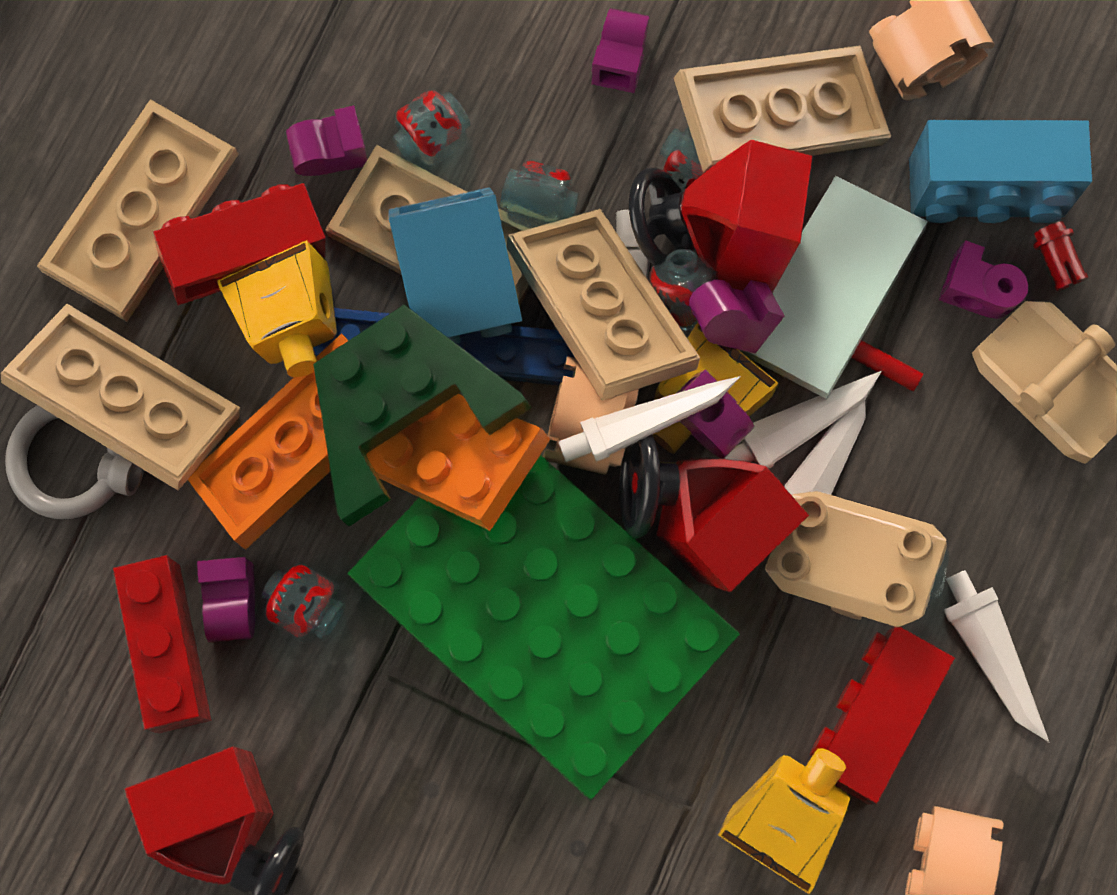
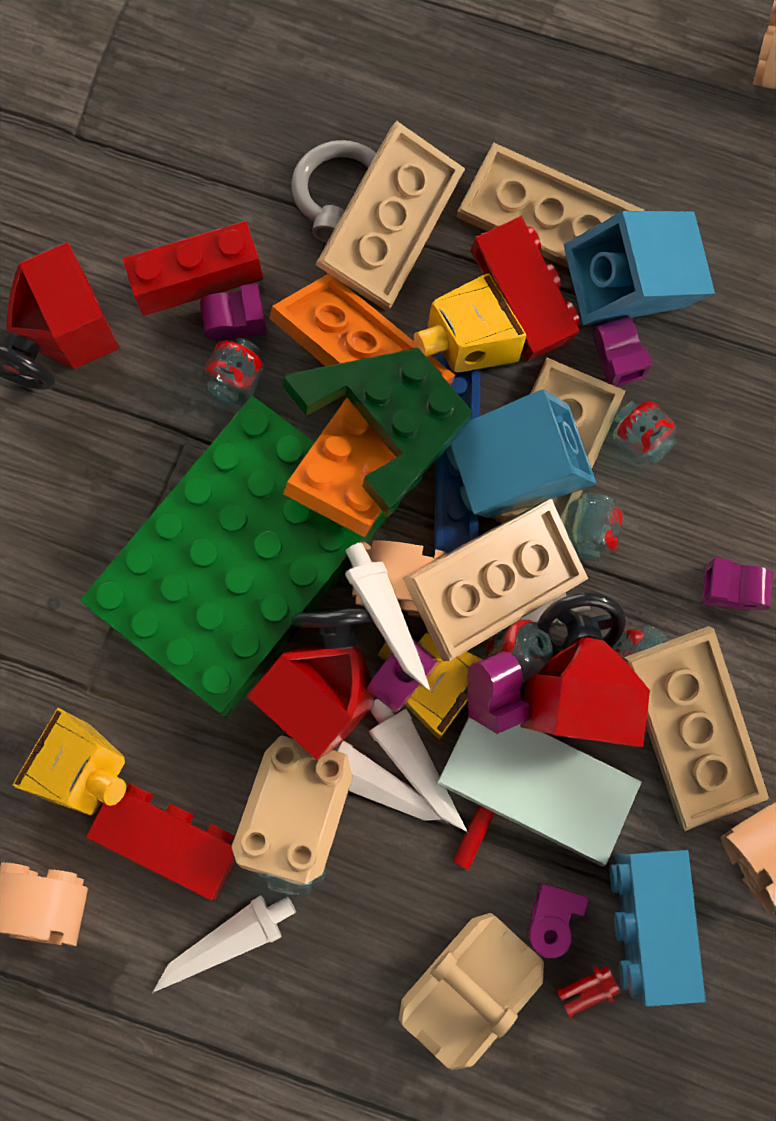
camera: 85 degrees right, 0 degrees up
(230, 110) = (638, 265): none -> dark azure slope

